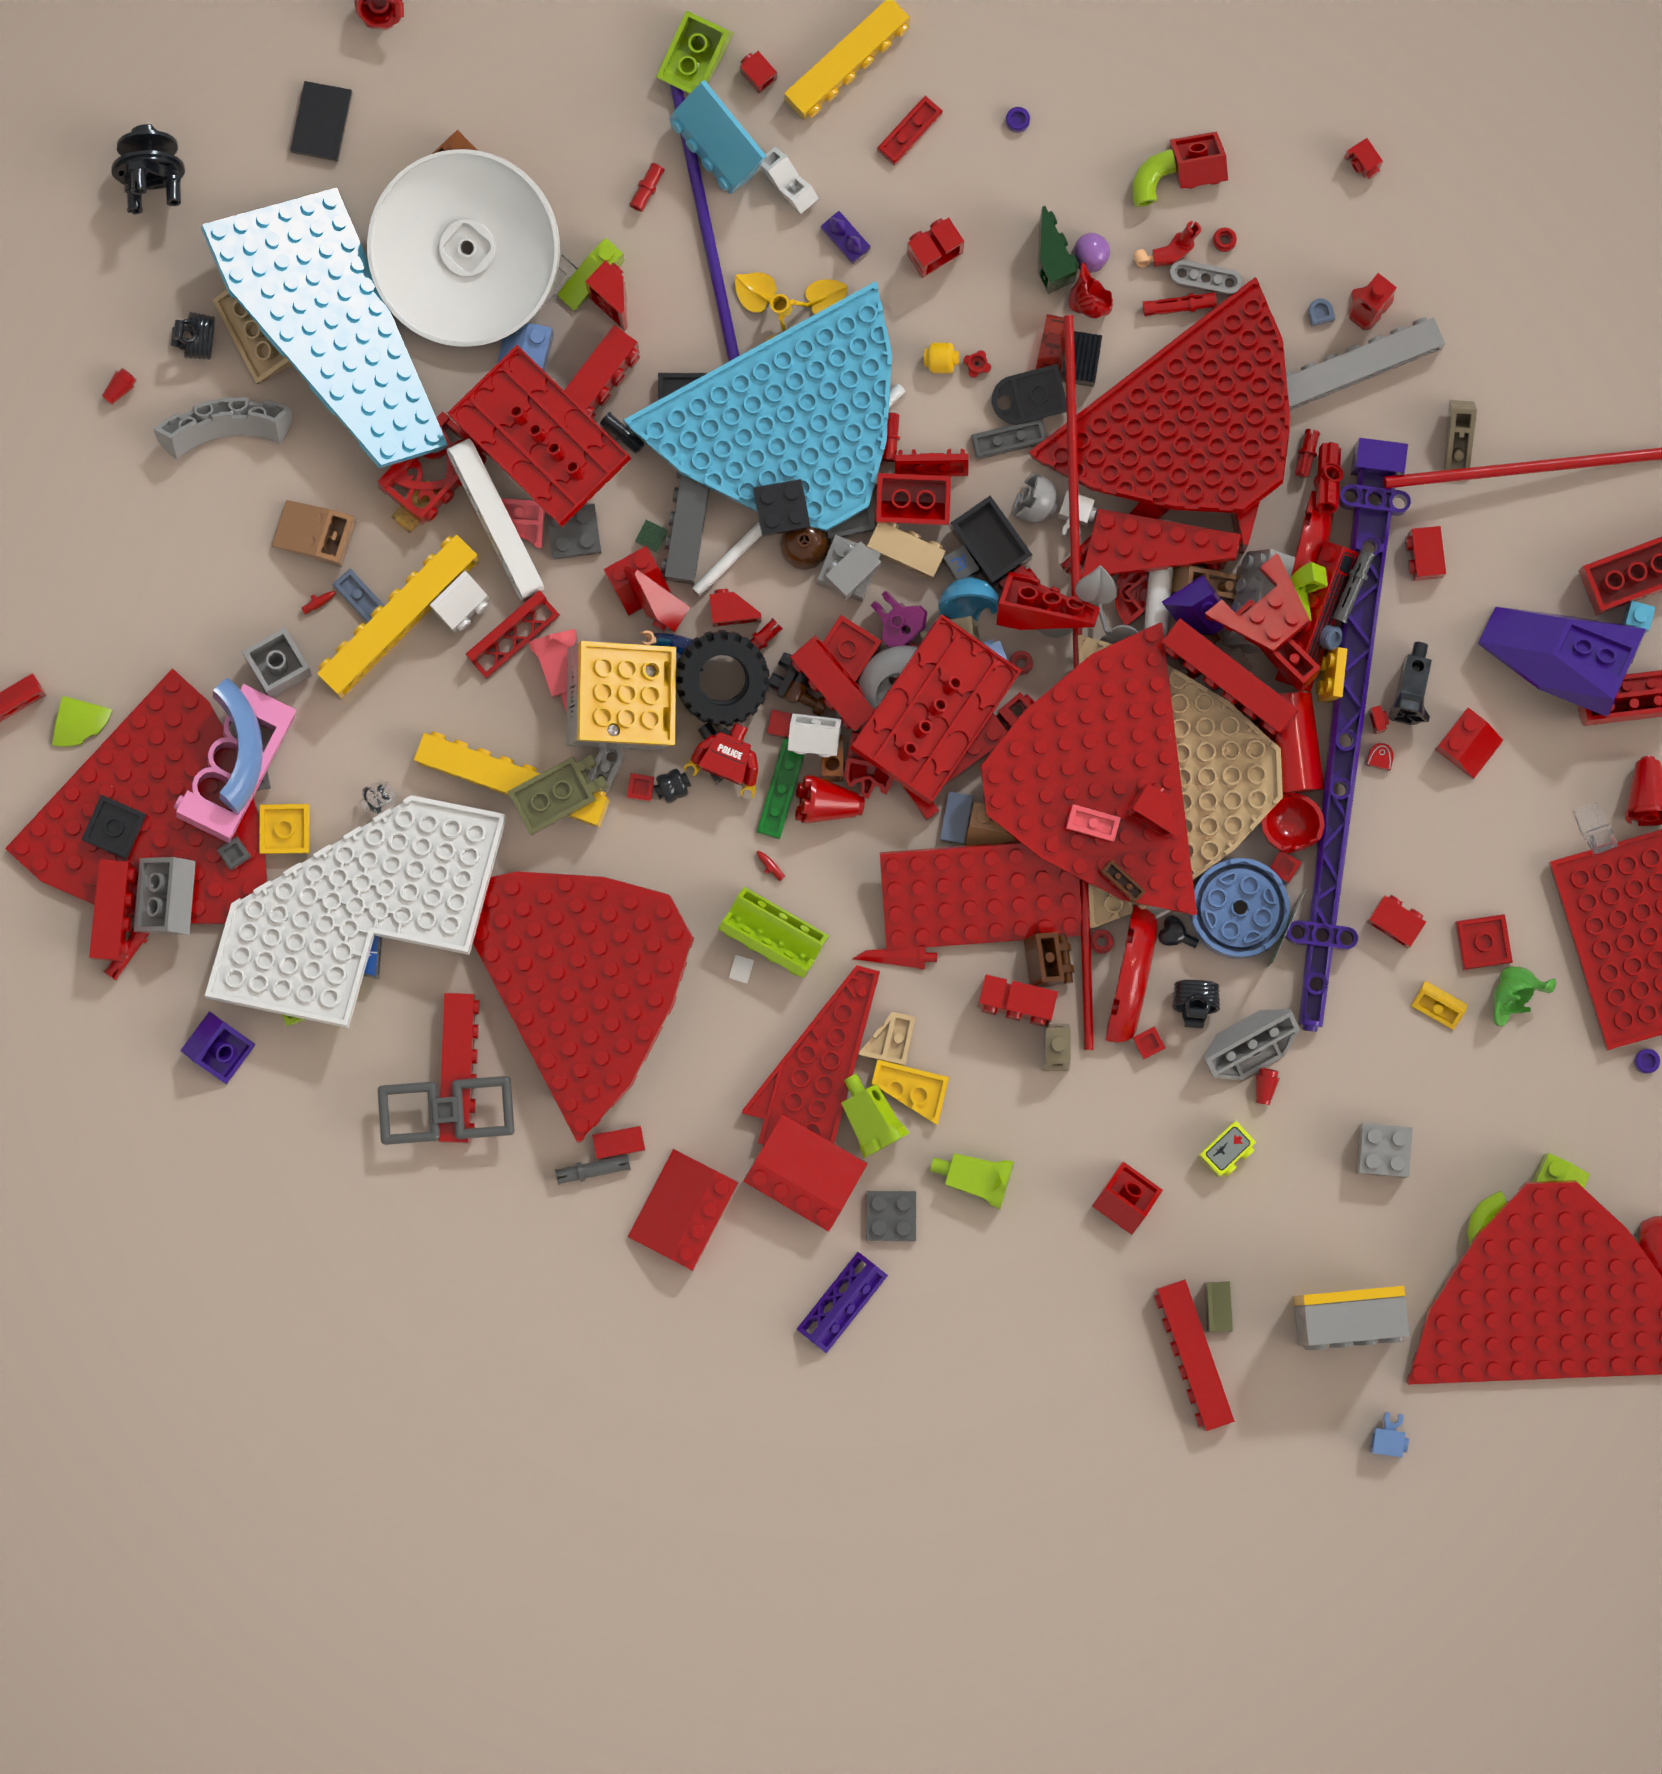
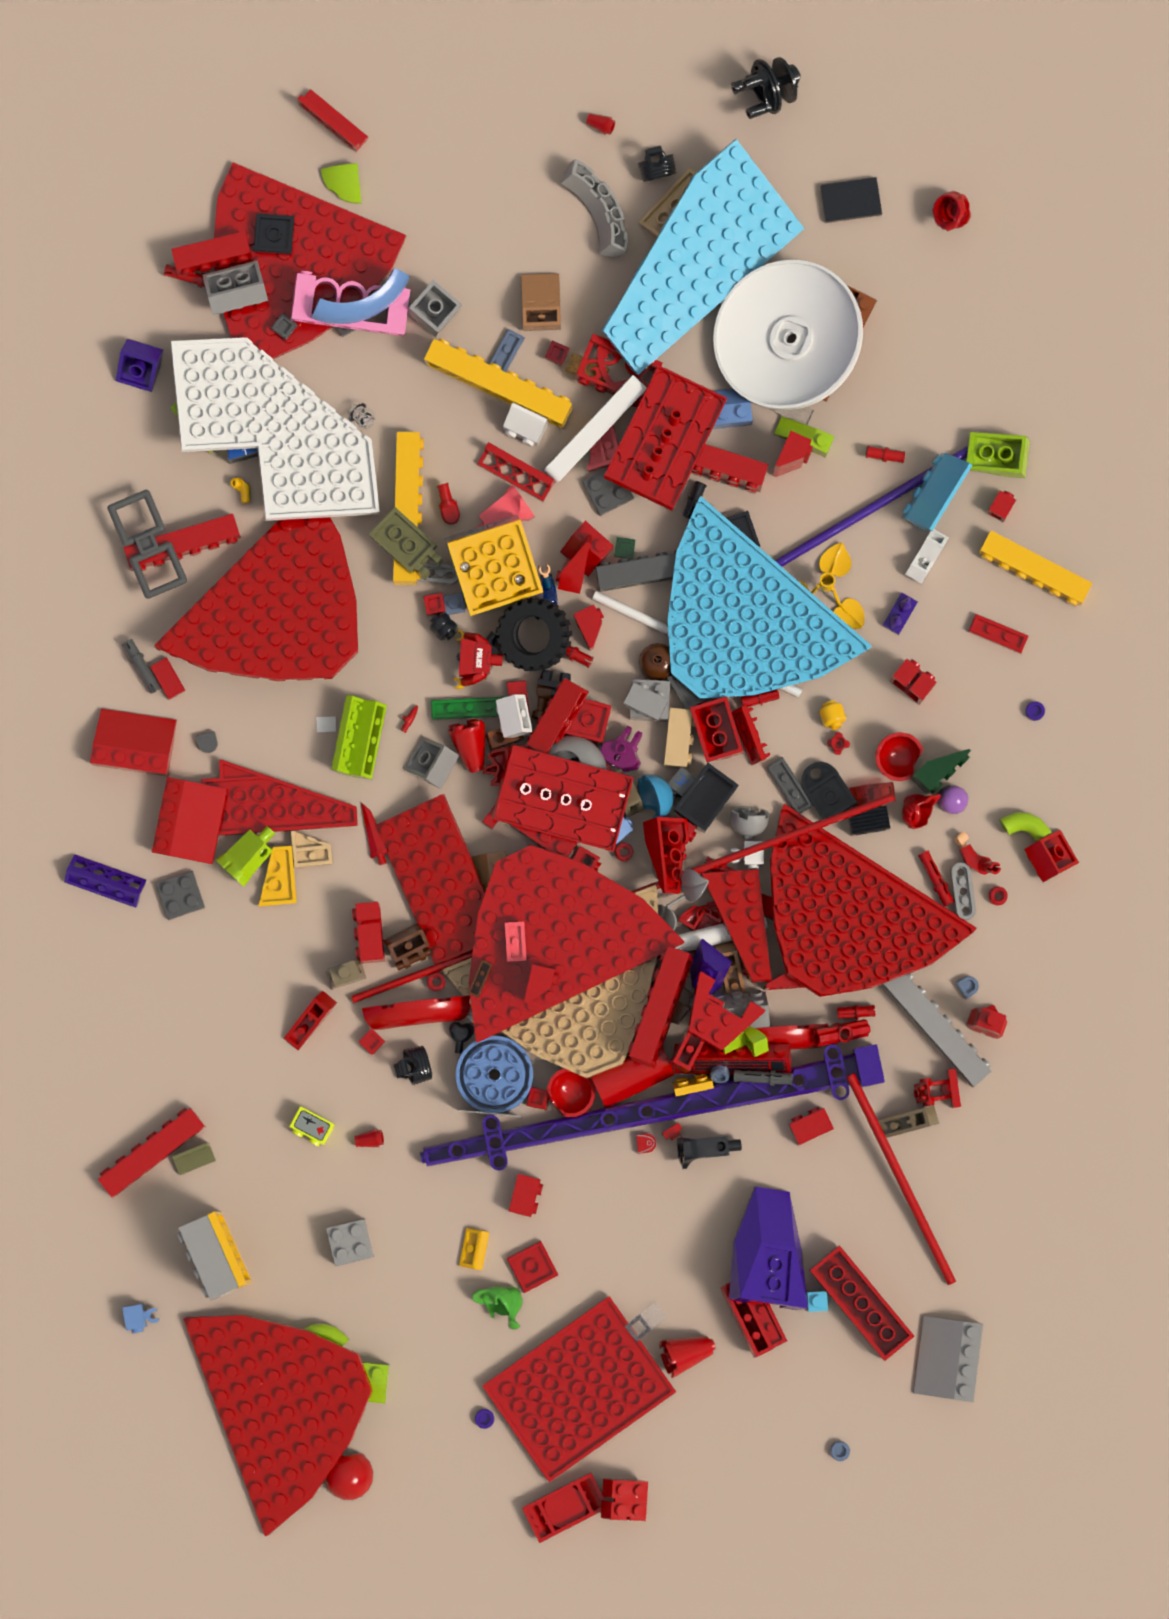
camera: 70 degrees right, 0 degrees up
(285, 829) = (315, 357): yellow plate -> none
(317, 602) = (491, 322): red helmet -> none
(384, 535) = (557, 353): none -> dark red plate
(414, 972) = (242, 487): none -> yellow arm
(526, 729) = (448, 506): none -> red arm
(648, 763) = (454, 604): none -> sand blue plate
(714, 1120) = (207, 742): none -> dark grey tile
(781, 507) = (675, 634): black plate -> none
(832, 856) = (431, 762): none -> light grey slope
(956, 817) = (491, 843): sand blue tile -> none
(976, 1176) = (229, 948): lime piece -> none
(1018, 296) = (898, 755): none -> red cylinder
(1098, 1108) = (310, 1020): none -> red slope
(1127, 1198) = (251, 1064): red slope -> none
(1251, 1044) = (395, 1117): light grey wedge -> none
(1364, 159) = (1096, 980): red brick -> none
(1434, 375) = (949, 1090): none -> red tile
(1469, 743) = (678, 1206): red slope -> none

